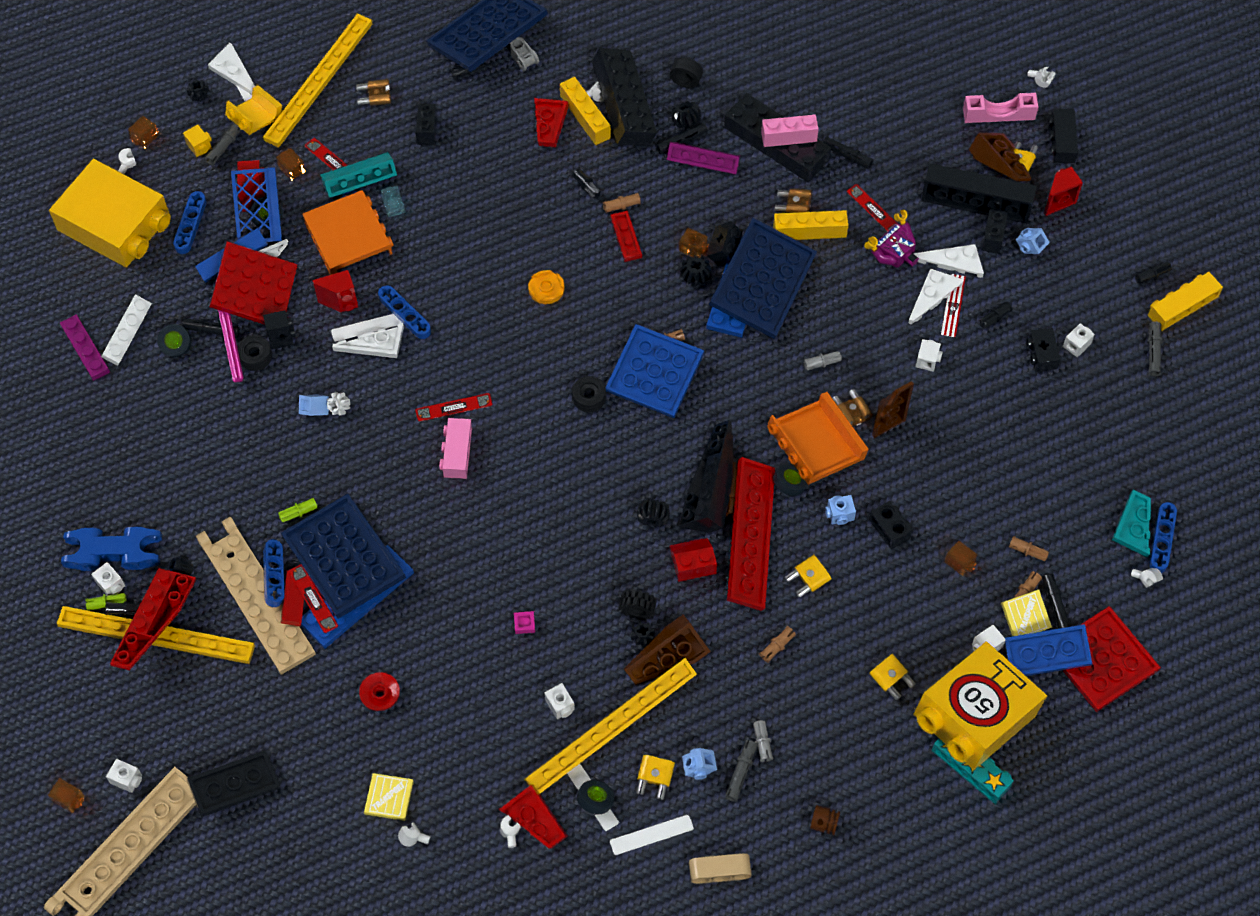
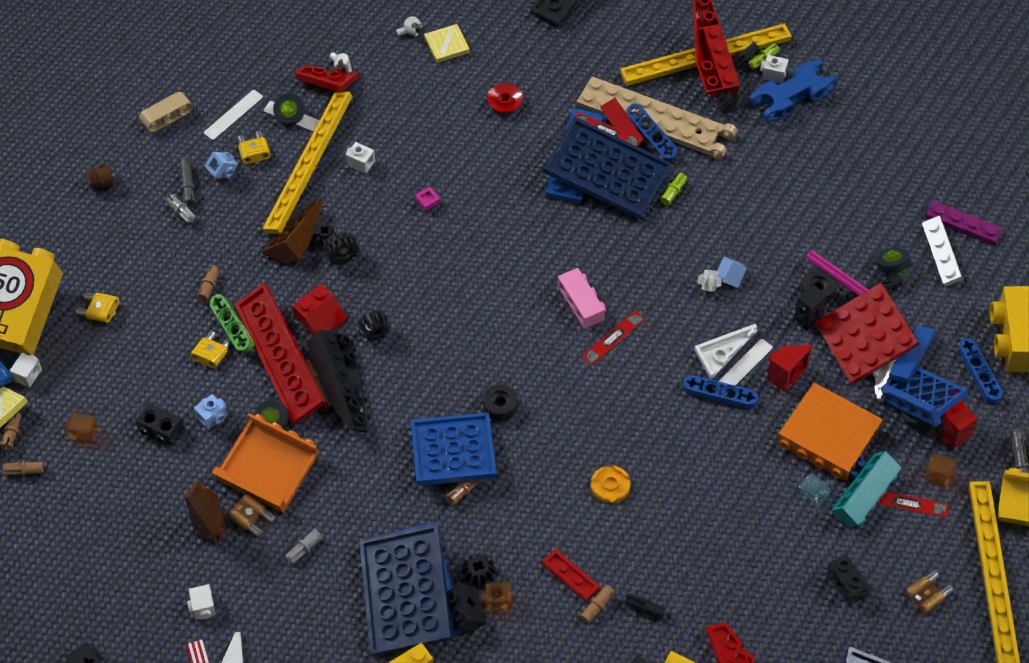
camera: 150 degrees right, 5 degrees down
(781, 590) = (231, 323): none -> bright green beam

